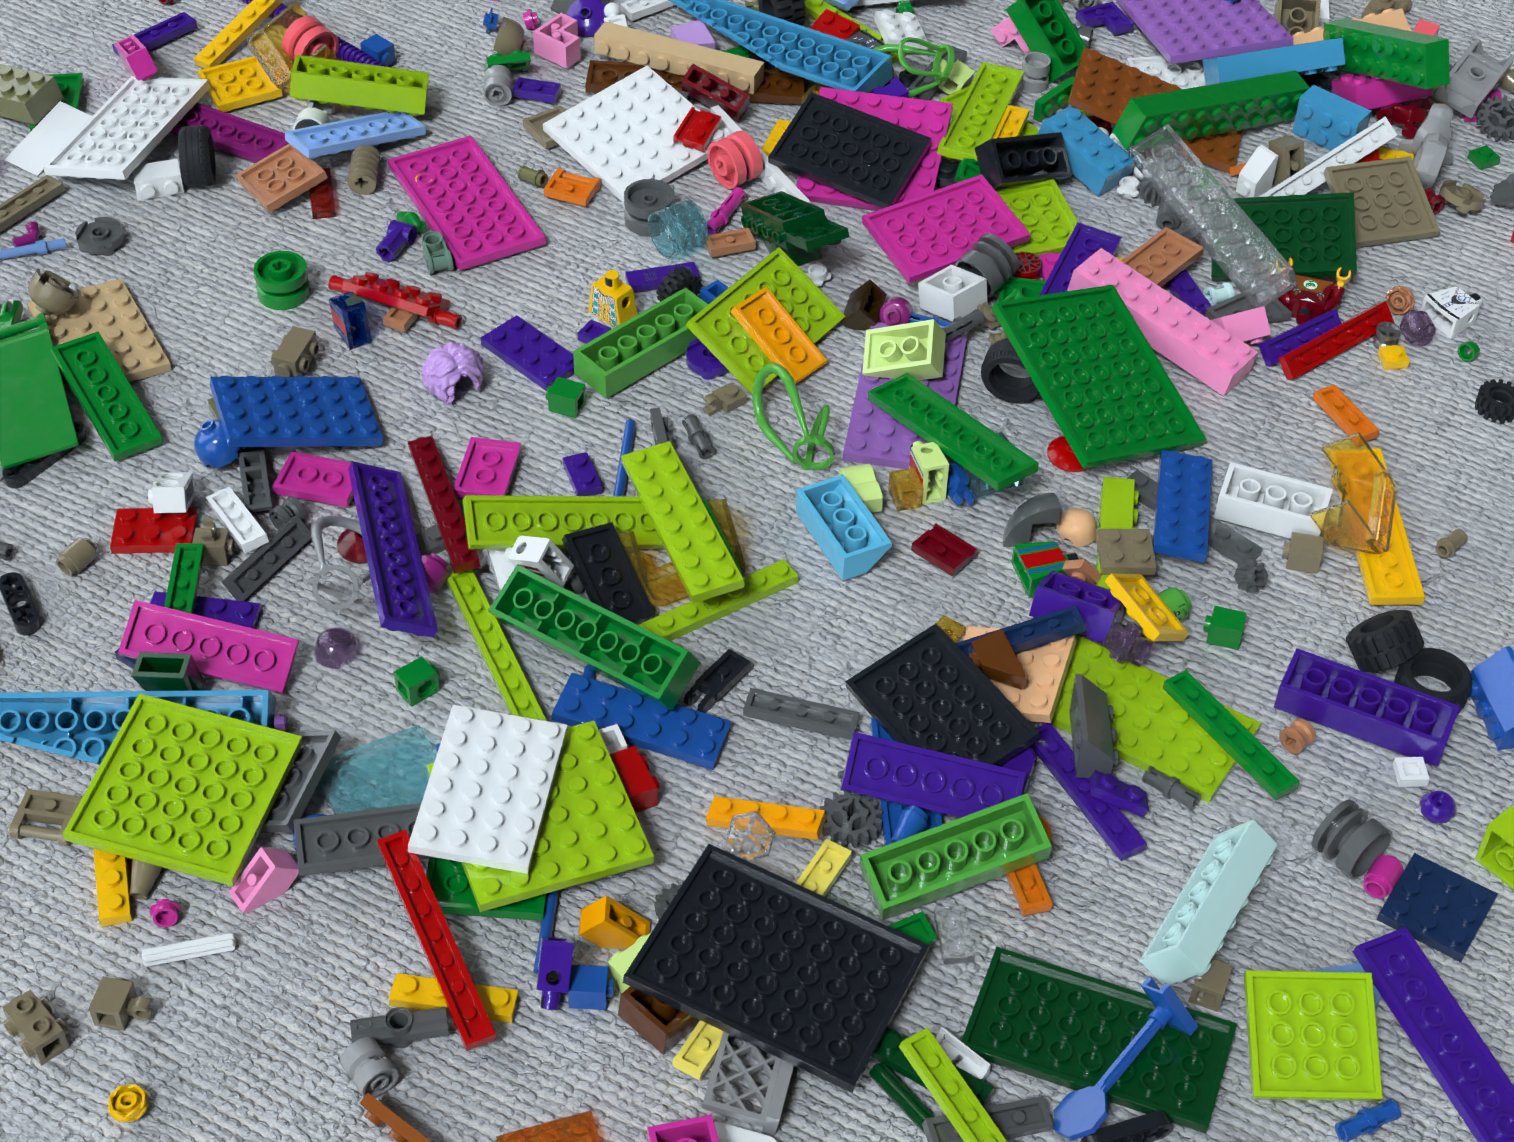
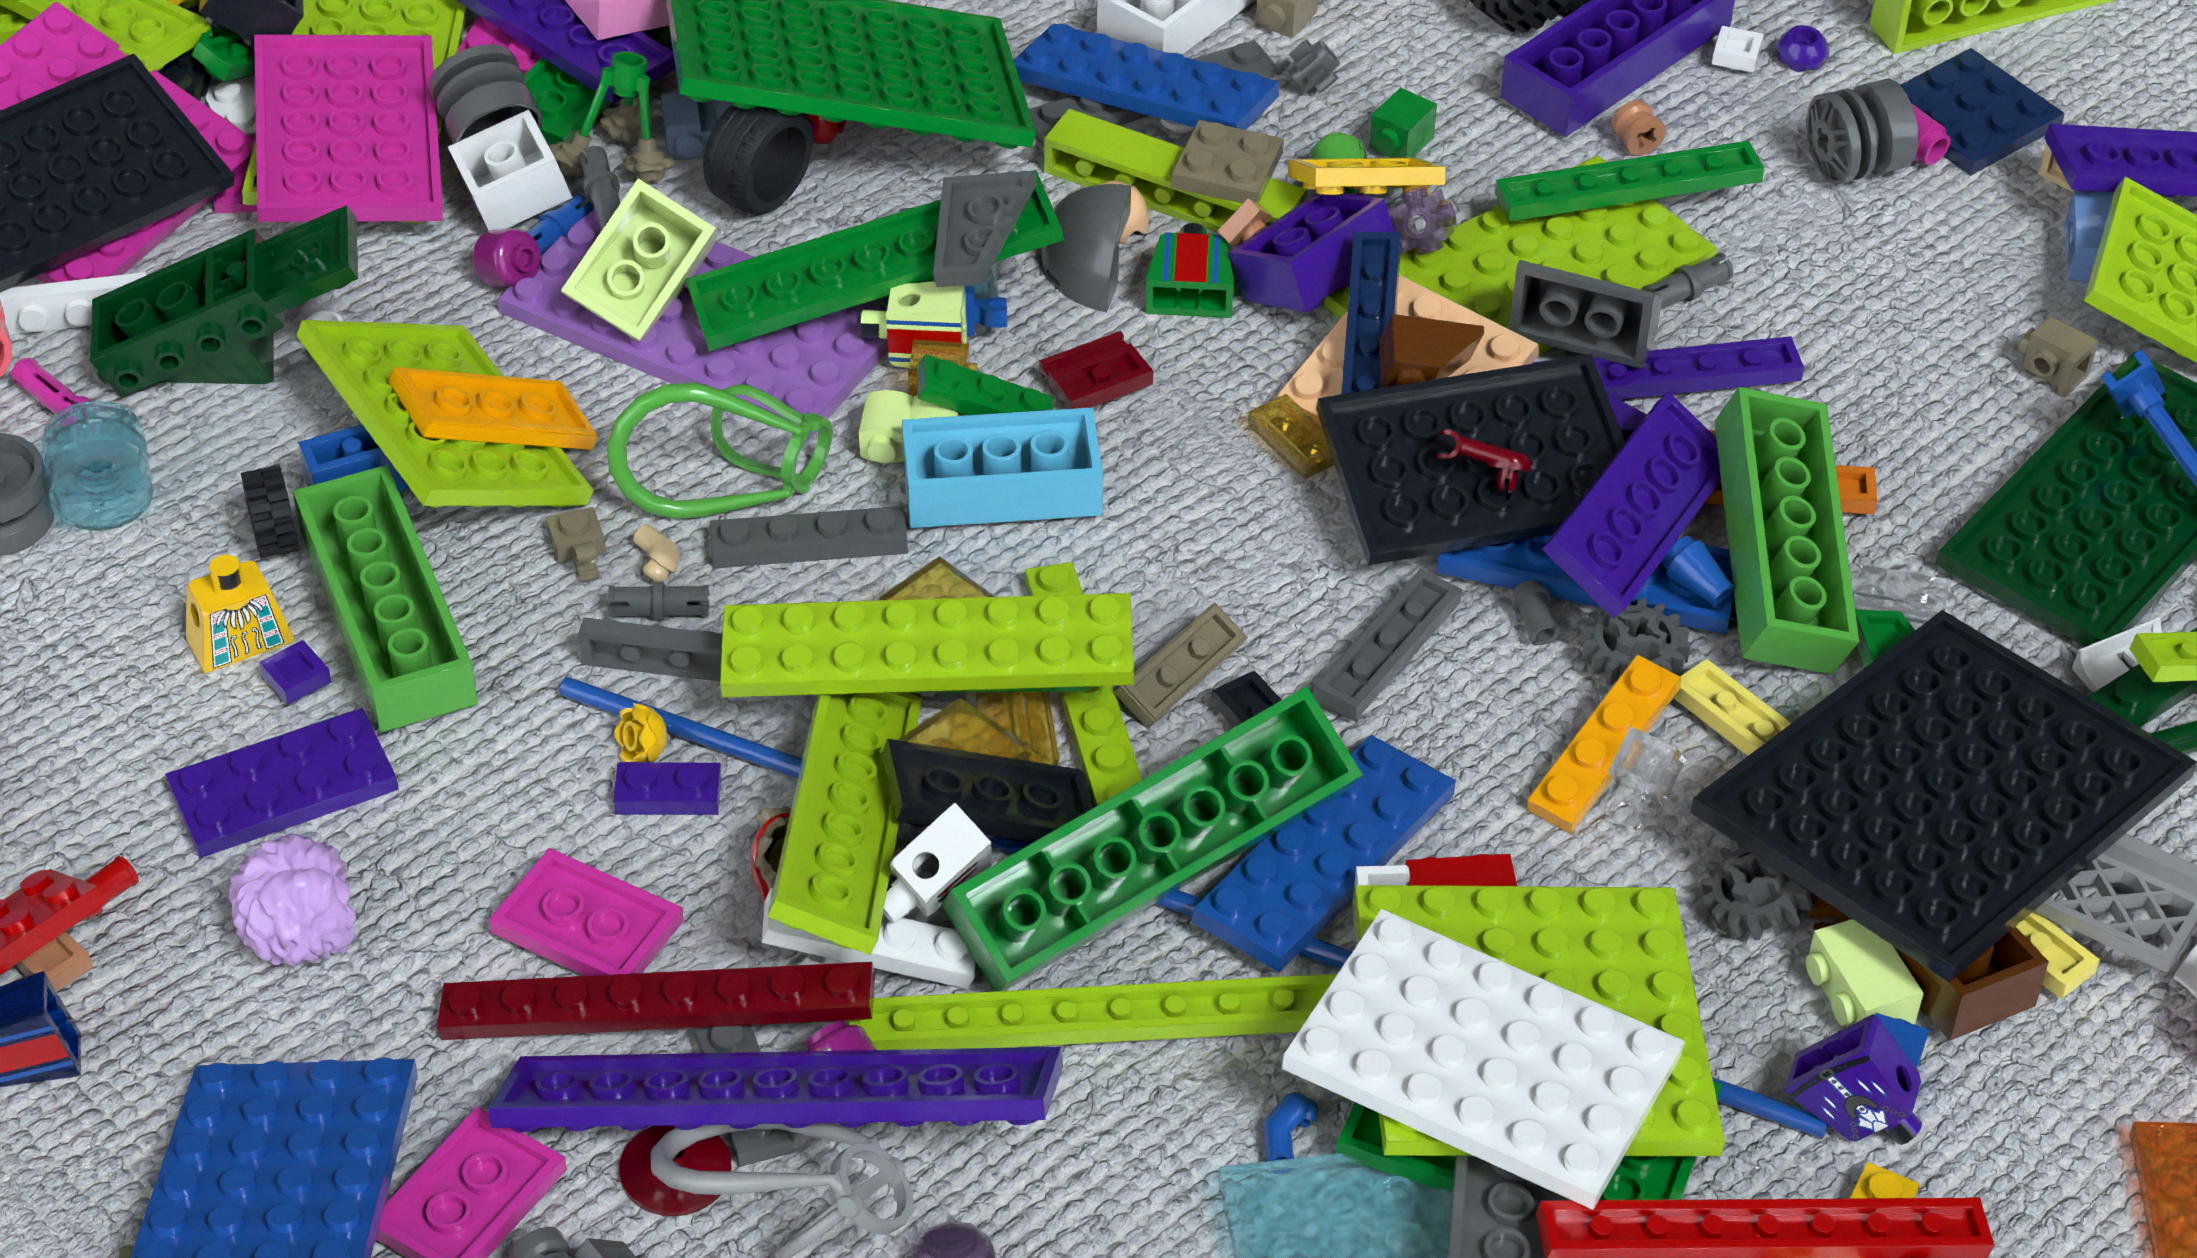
camera: 70 degrees left, 0 degrees up
(295, 352) = (68, 1154): dark tan brick -> none
(417, 681) = (1106, 1148): green brick -> none
(566, 397) = (455, 753): green brick -> none
(605, 454) = (640, 734): none -> yellow plate
(611, 924) = (1770, 1002): light orange slope -> none
(649, 278) = (187, 539): dark purple tile -> none
(698, 362) = (450, 550): dark purple plate -> none
(729, 429) = (663, 553): none -> tan arm
(730, 242) = (164, 412): nougat plate -> none
(746, 635) = (1181, 665): none -> dark tan tile
(768, 476) = (808, 537): none -> dark grey plate
(863, 306) = (453, 296): dark brown brick -> none
(890, 506) = (974, 392): none -> green plate
(930, 707) = (1505, 459): none -> dark red piece
(977, 448) = (976, 222): none -> dark grey wing
(1062, 455) = (924, 167): red dish -> none
(1118, 793) = (1691, 332): dark purple plate -> none
(1209, 904) = (1940, 299): light aqua brick -> none

